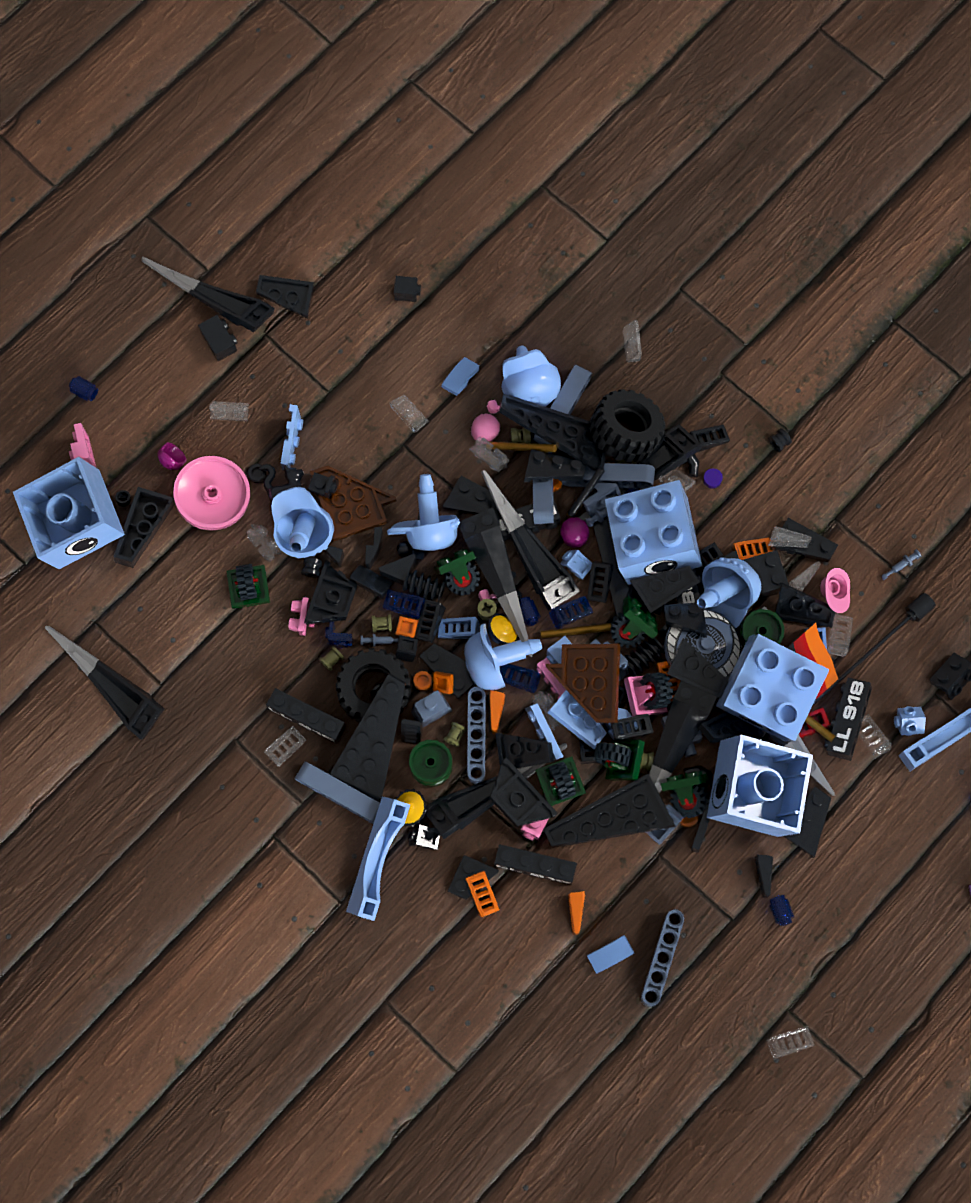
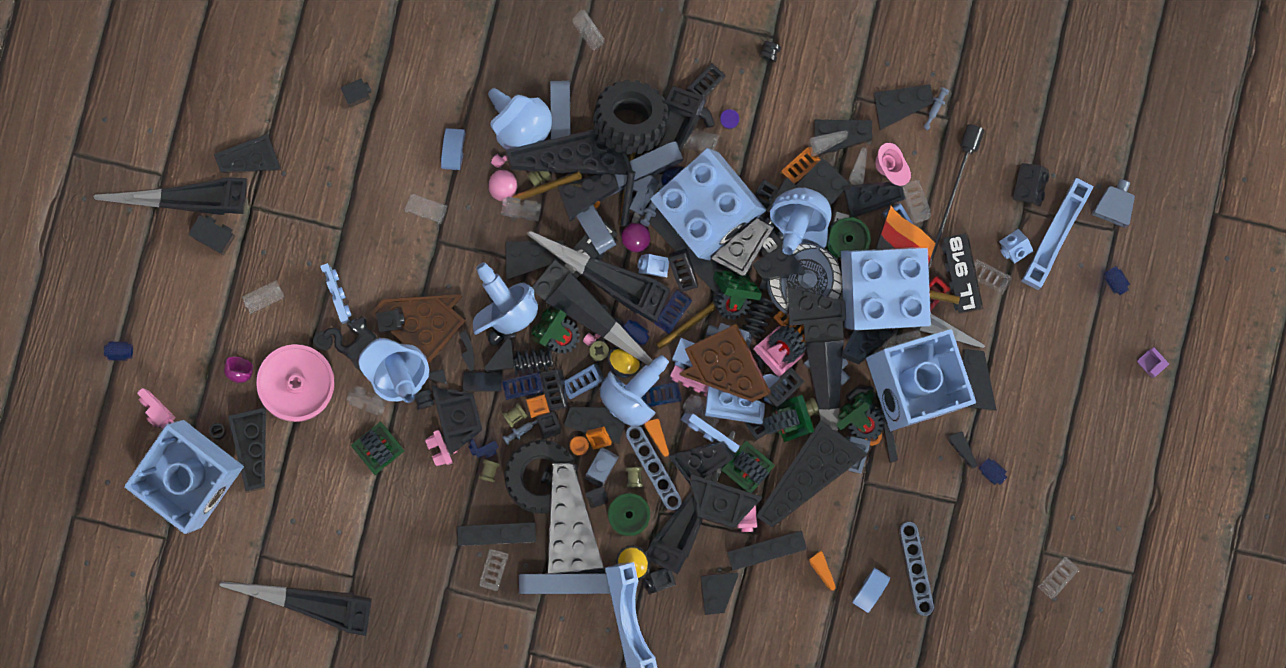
camera: 35 degrees left, 10 degrees up
(487, 910) = (748, 611): orange slope -> none
(871, 544) = (899, 103): none -> black wing

